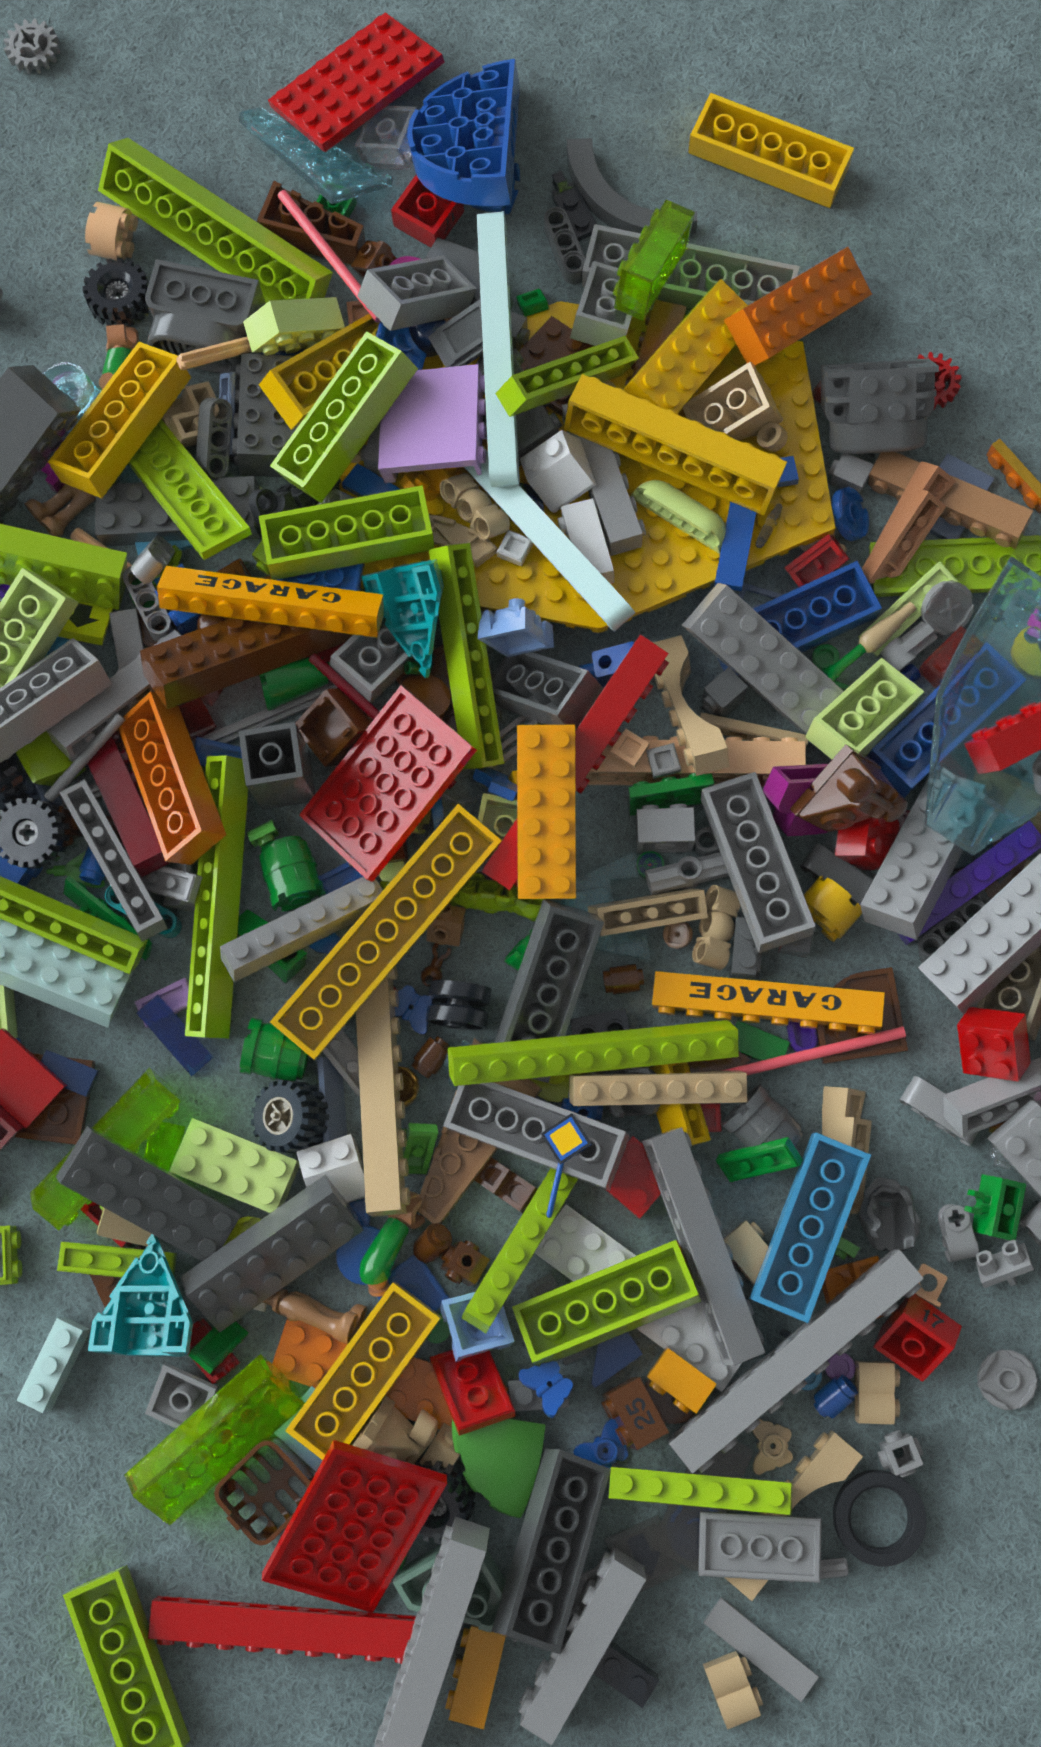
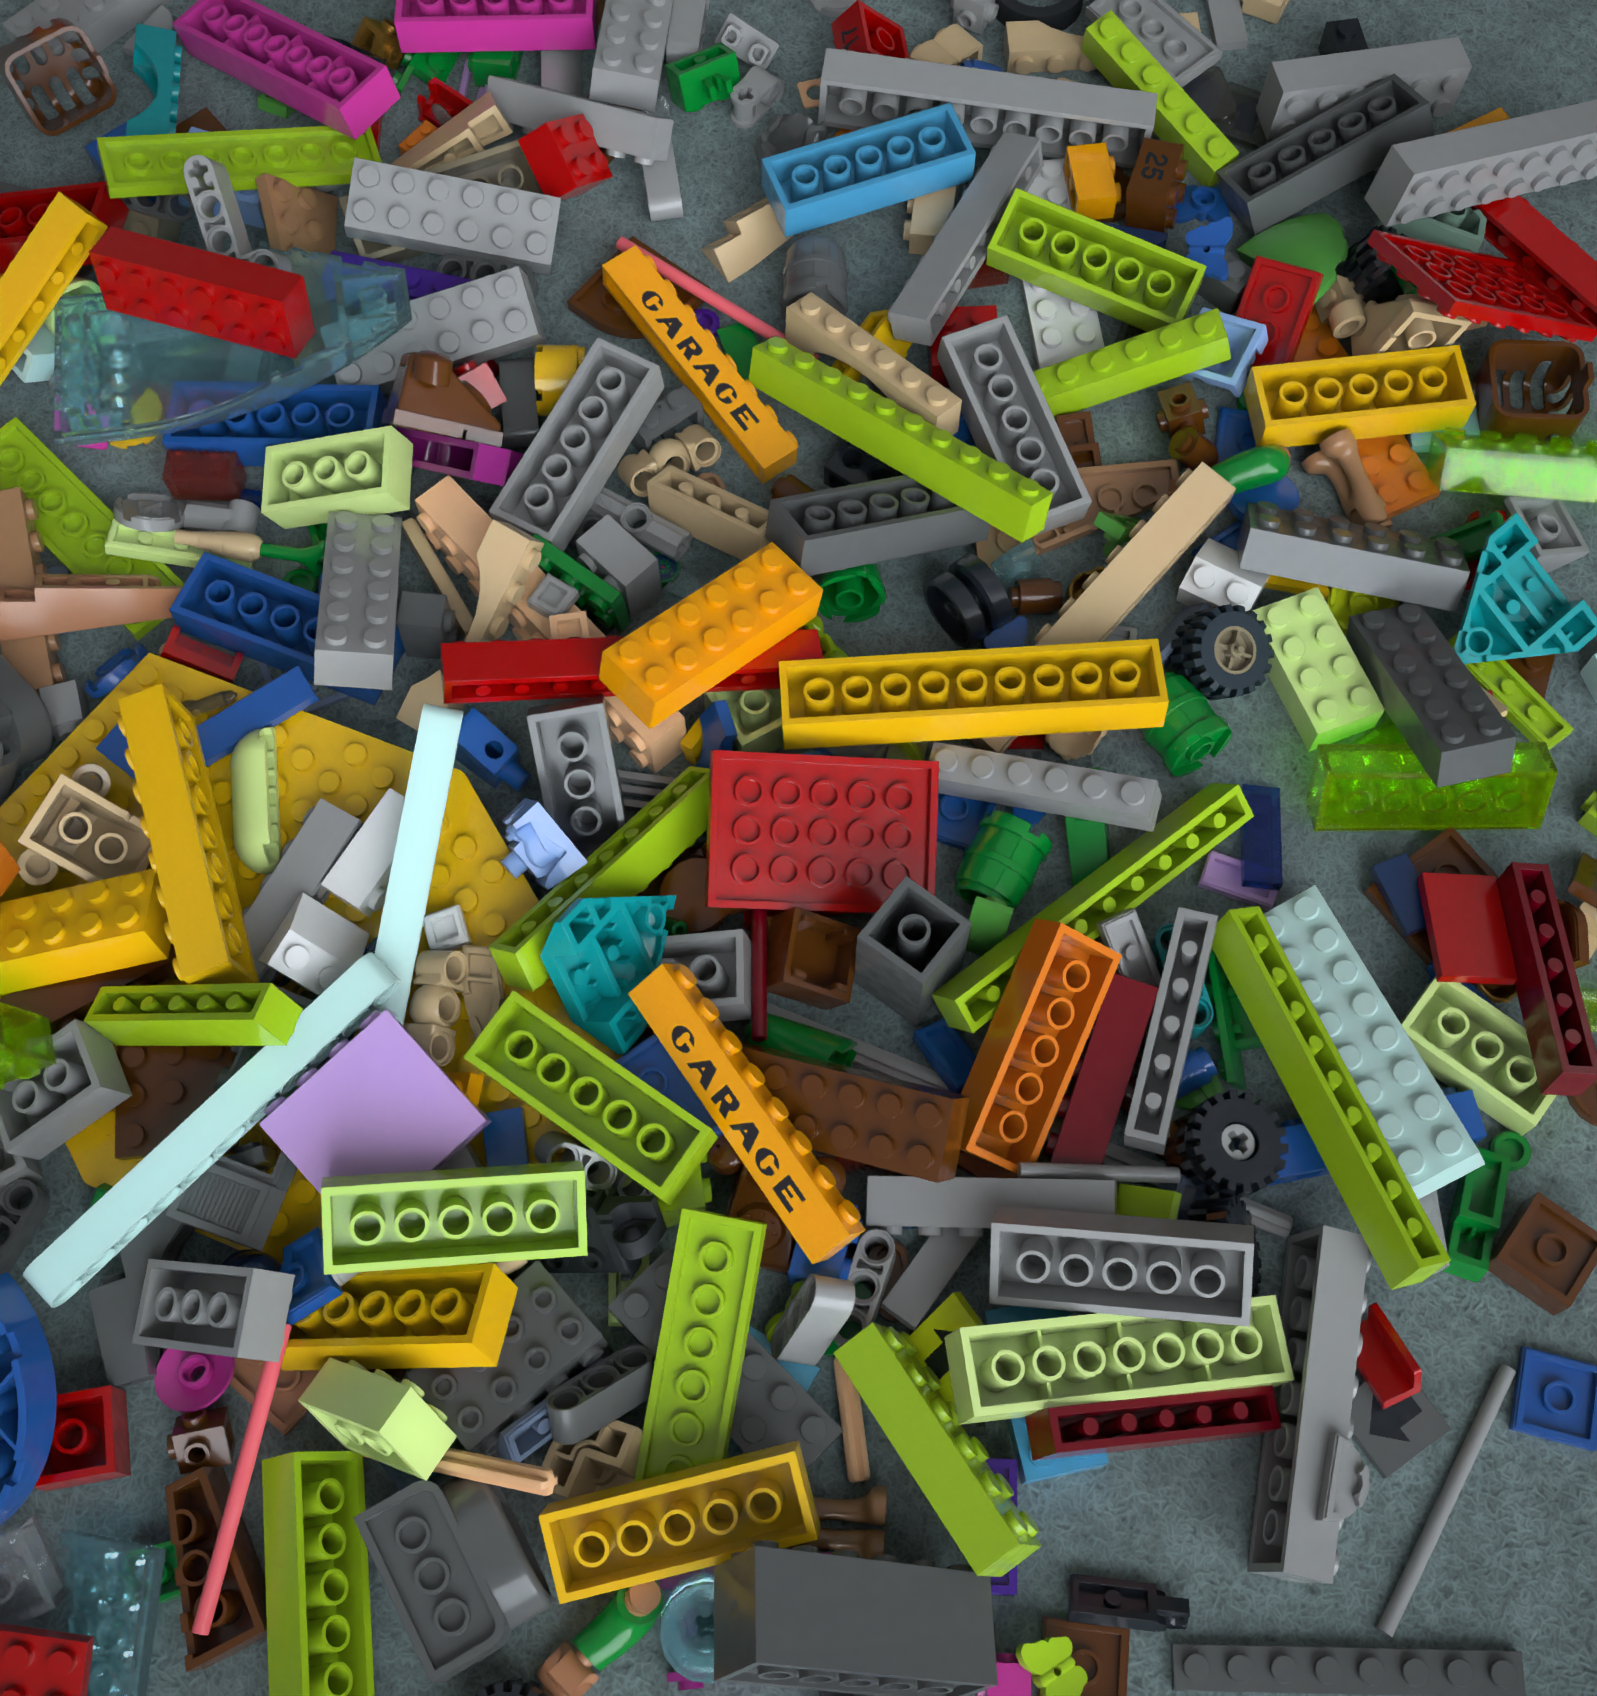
camera: 140 degrees left, 10 degrees down
(565, 1141) = (1000, 379): piece -> none
(759, 1159) = (850, 255): green tile -> none

